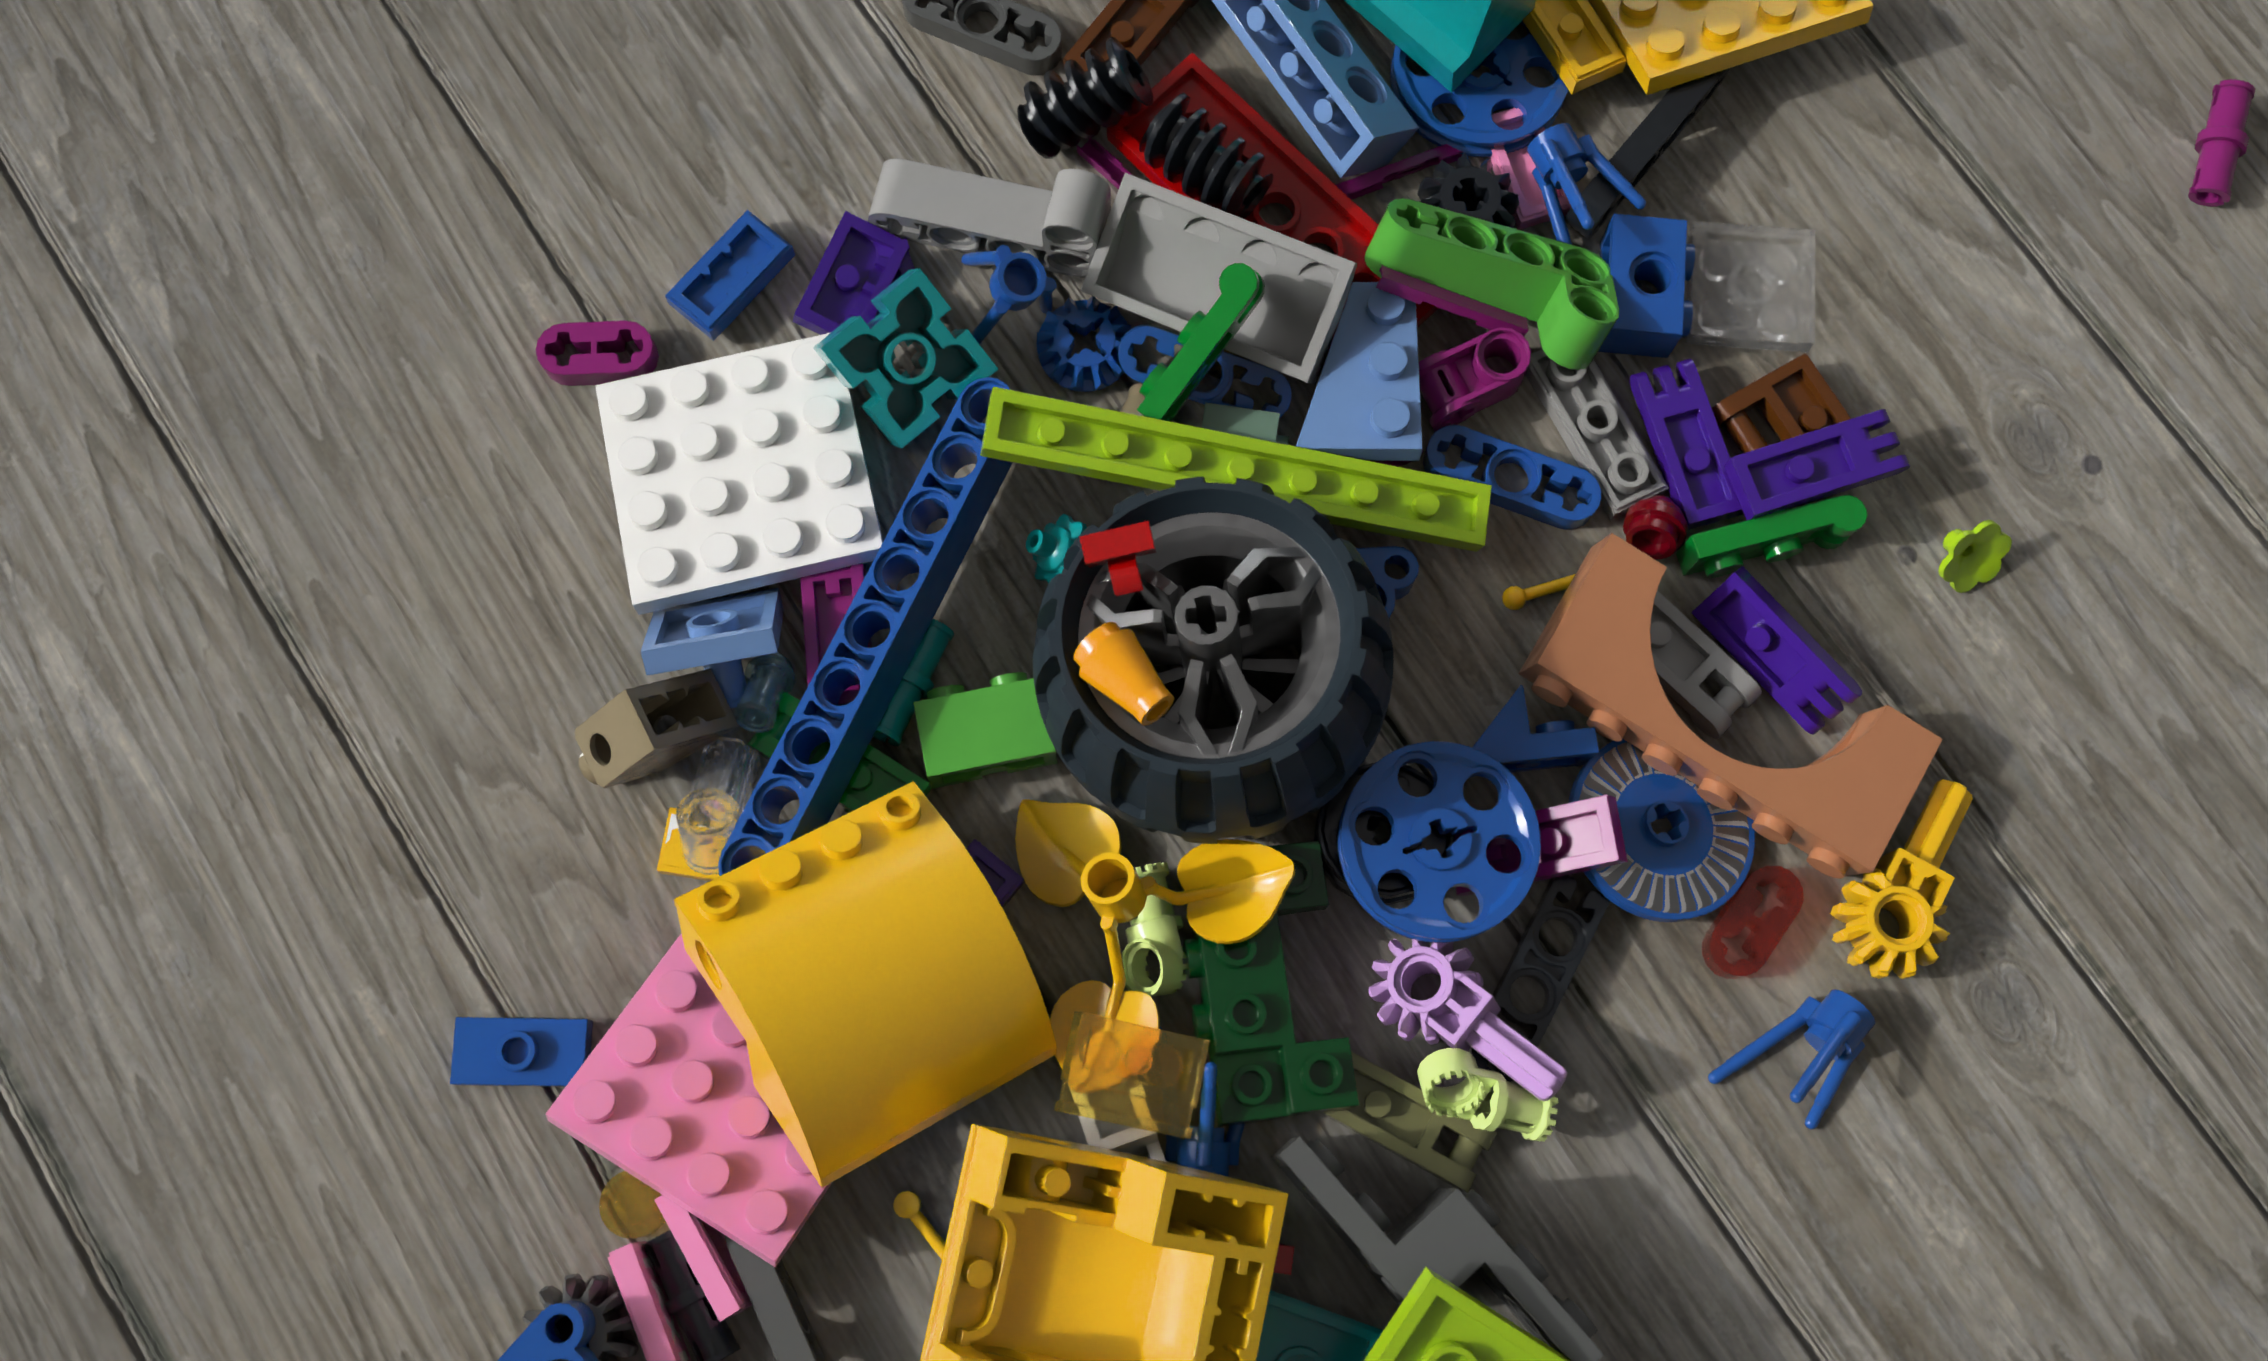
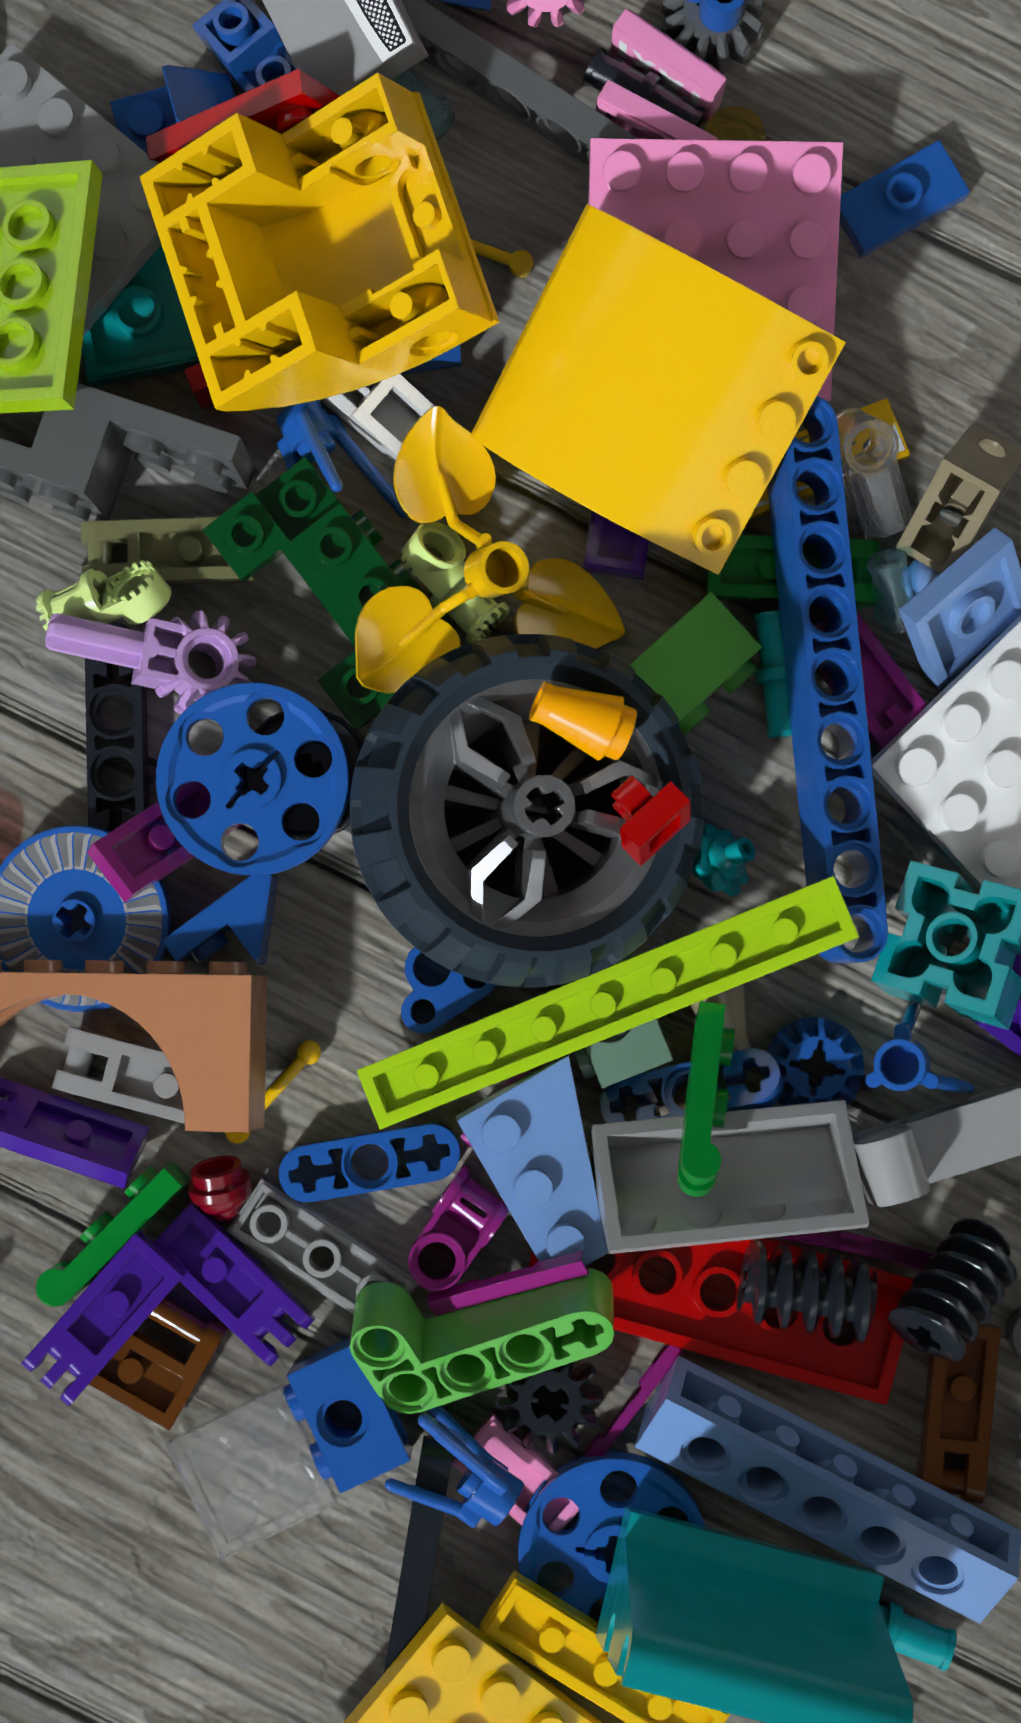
camera: 150 degrees right, 10 degrees up
(1132, 1074) = (396, 440): clear yellow plate -> none

